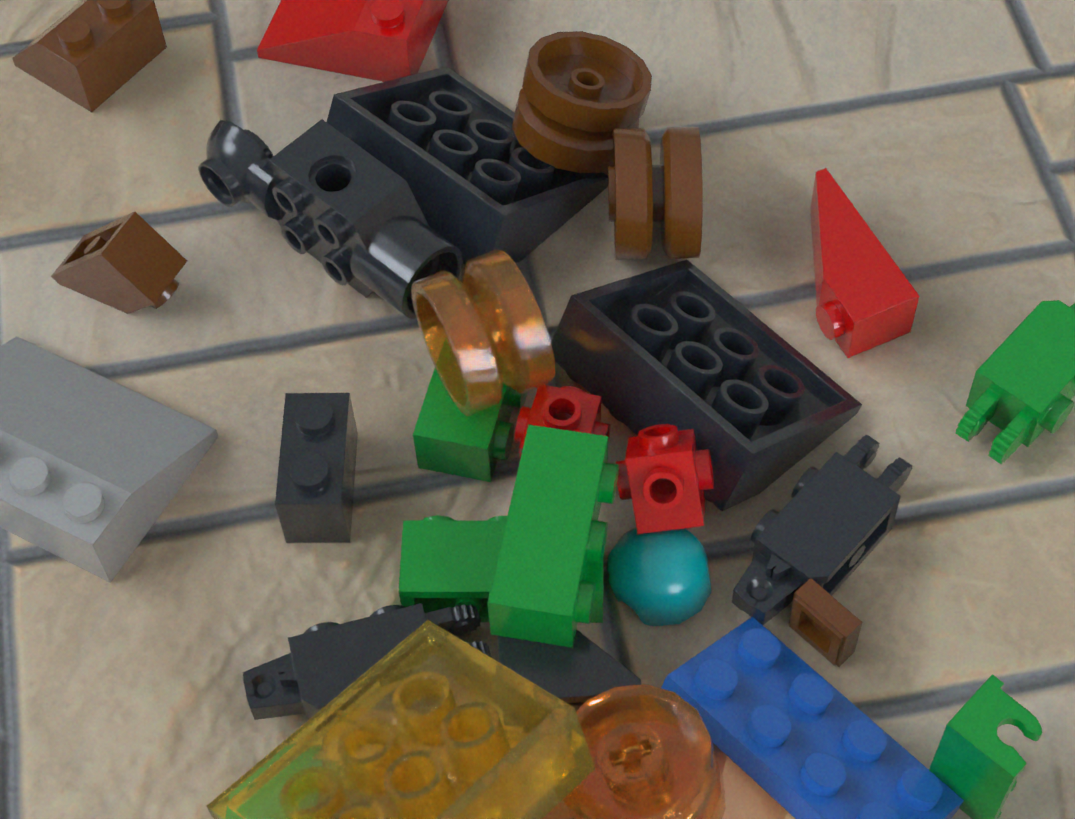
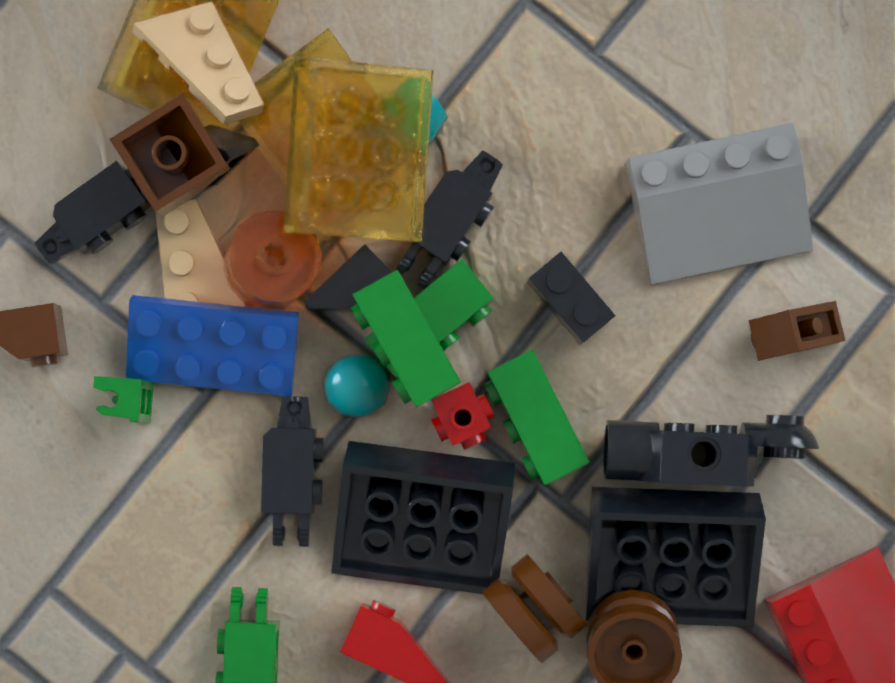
camera: 135 degrees right, 30 degrees up
(483, 331) = (530, 415): clear orange wheel -> none
(665, 479) = (381, 423): red brick -> none
(824, 623) = (252, 417): reddish brown tile -> none

